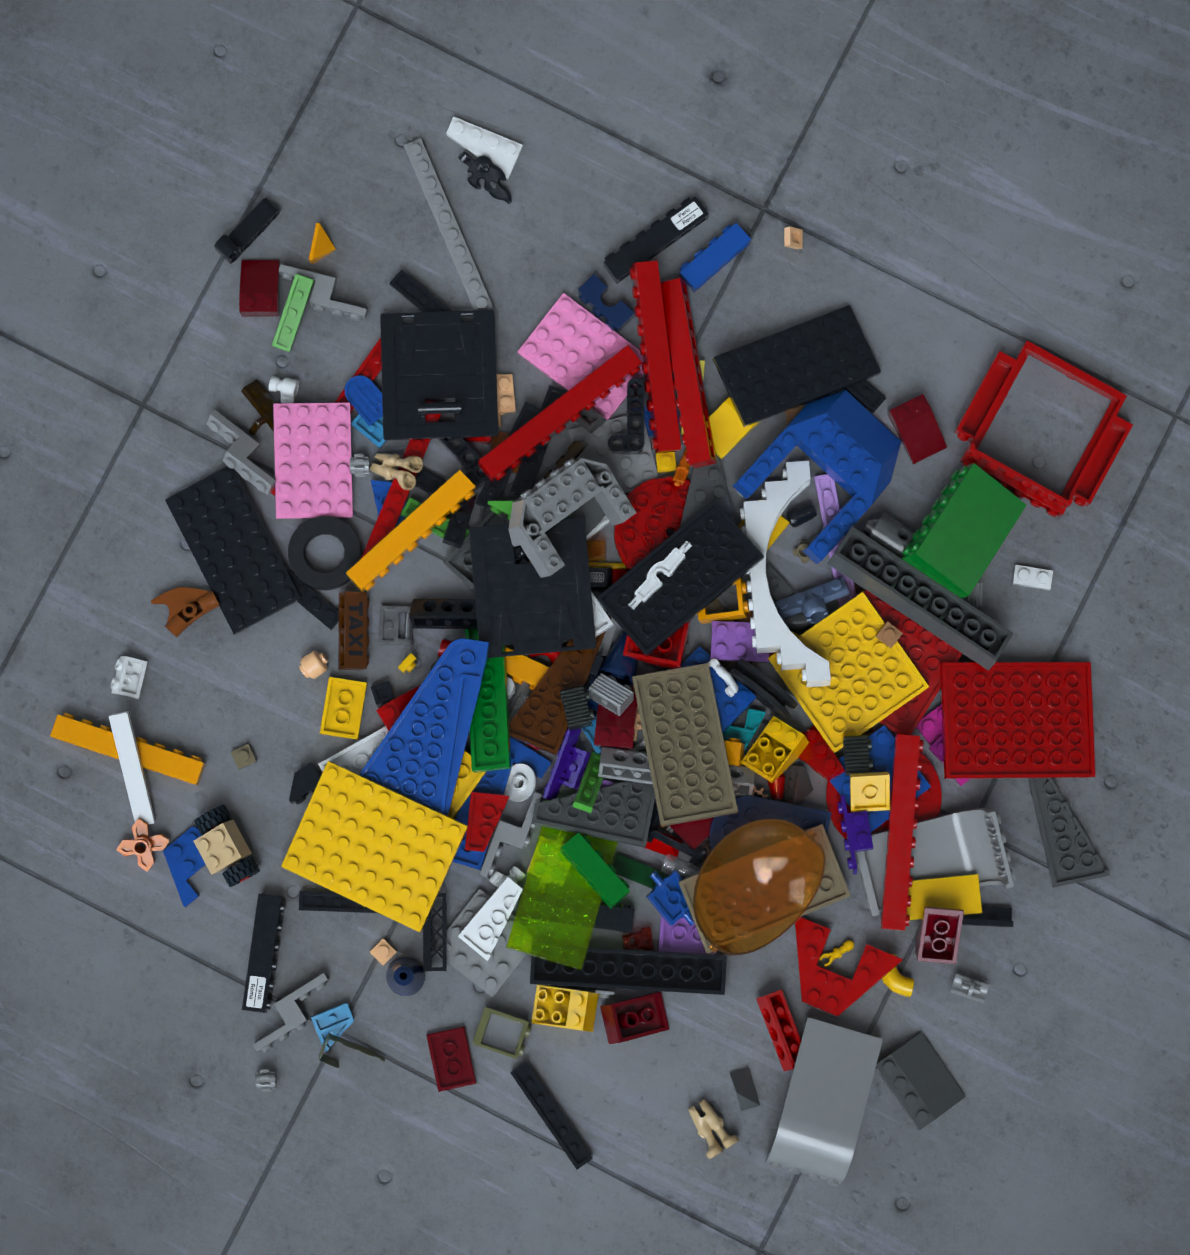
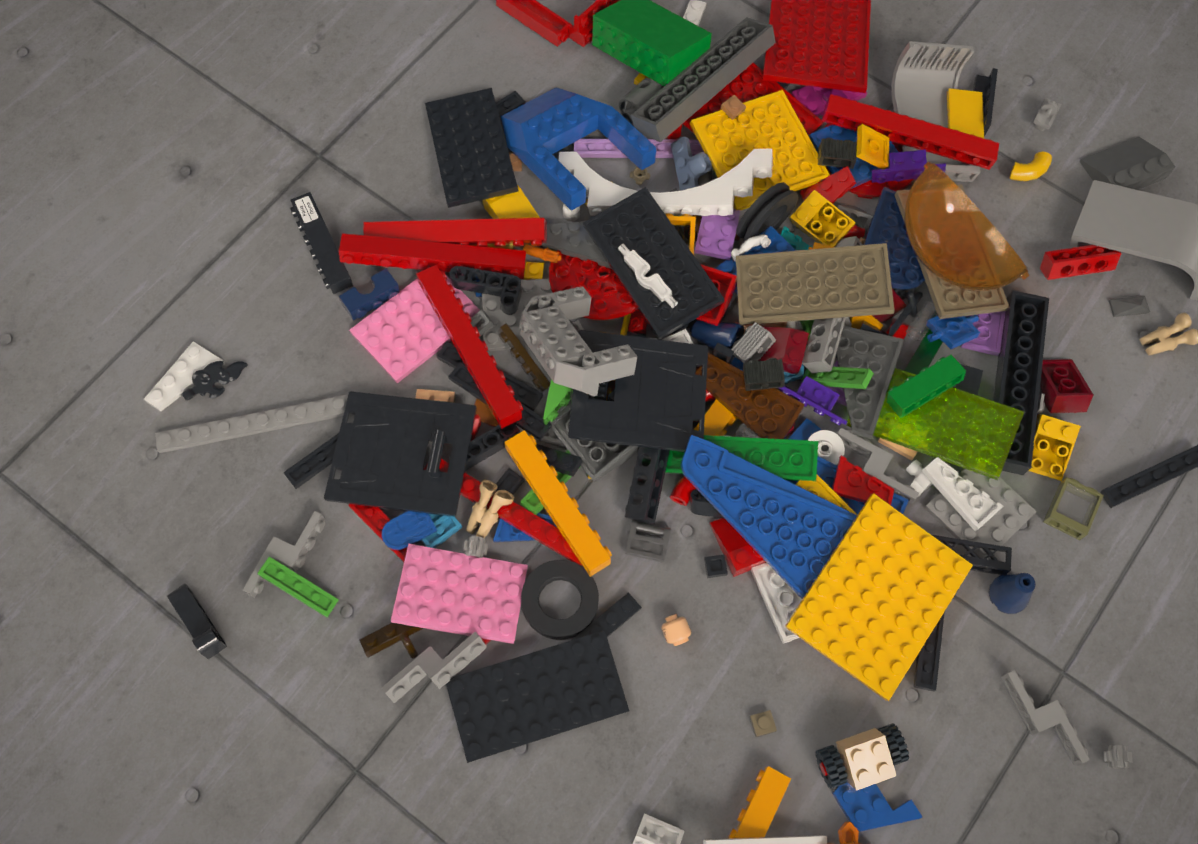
camera: 80 degrees left, 15 degrees down
(181, 600) = (584, 765): dark orange pin -> none
(259, 288) = (263, 619): dark red slope -> none
(262, 953) = (980, 737): black brick -> none
(287, 387) = (376, 608): white piece -> none
(303, 783) = (799, 661): black slope -> none
(320, 246) = (233, 548): light orange slope -> none
(328, 1060) = (1076, 676): olive piece -> none
(332, 1021) = (1057, 676): dark azure wing -> none
(343, 708) = (726, 608): yellow plate -> none
(353, 631) = (648, 583): reddish brown brick -> none
(383, 951) = (983, 611): light nougat plate -> none
(408, 664) = (690, 535): yellow plate -> none
(451, 1059) = (1095, 563): dark red tile -> none
(642, 938) = (989, 368): clear red plate -> none
(715, 257) = (351, 196): blue brick -> none
(793, 238) = (352, 134): light nougat plate -> none
(801, 514) = (606, 168): black piece -> none
(828, 989) = (1044, 216): red wing -> none
(837, 952) = (1007, 210): yellow piece -> none
(917, 429) = (546, 71): dark red slope -> none
(939, 935) = (1004, 122): dark red slope -> none
(1064, 841) = (925, 26): dark grey wing -> none

